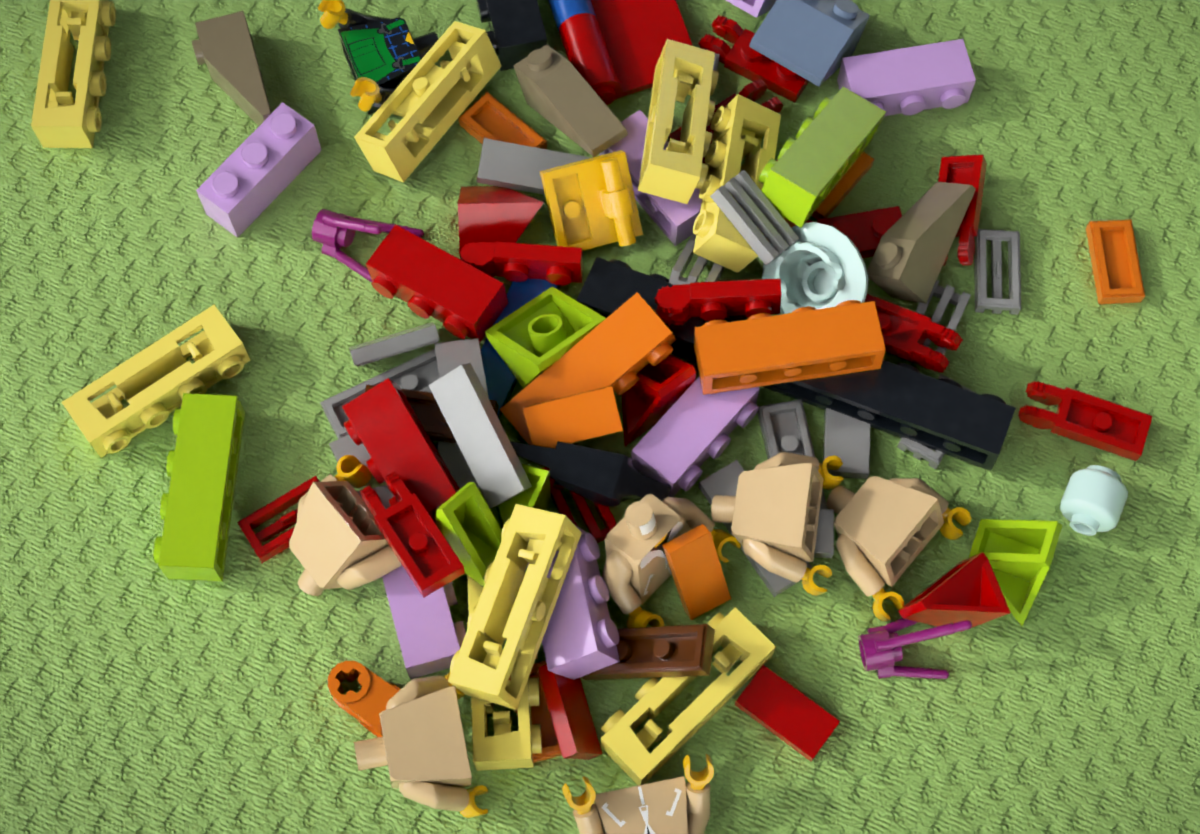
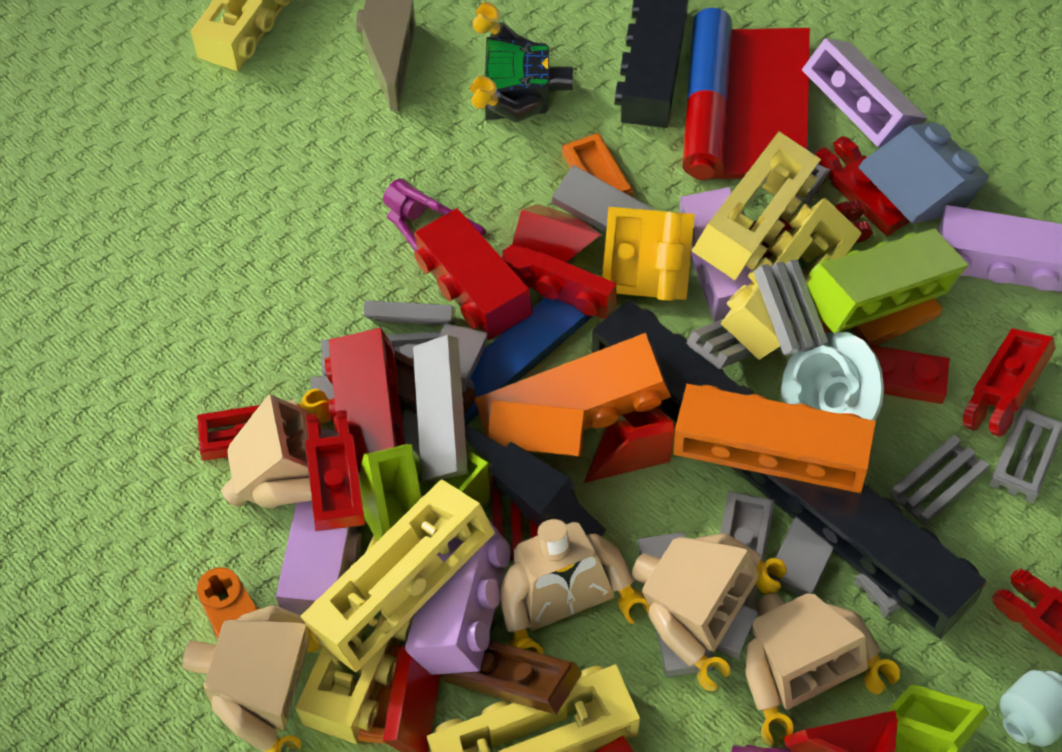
camera: 25 degrees right, 10 degrees down
(156, 381) = (188, 271): light yellow brick -> none
(200, 487) = (180, 373): lime brick -> none
(259, 169) = (364, 129): lavender brick -> none
(429, 101) = (539, 121): light yellow brick -> none
(541, 333) = (544, 344): lime slope -> none
(567, 100) = (664, 157): dark tan slope -> none
(691, 433) = (651, 491): lavender brick -> none
(697, 571) = (594, 616): orange tile -> none
(718, 300) = (724, 369): red hinge -> none
(907, 331) = (903, 472): red hinge -> none
(919, 242) = (948, 398): dark tan slope -> none

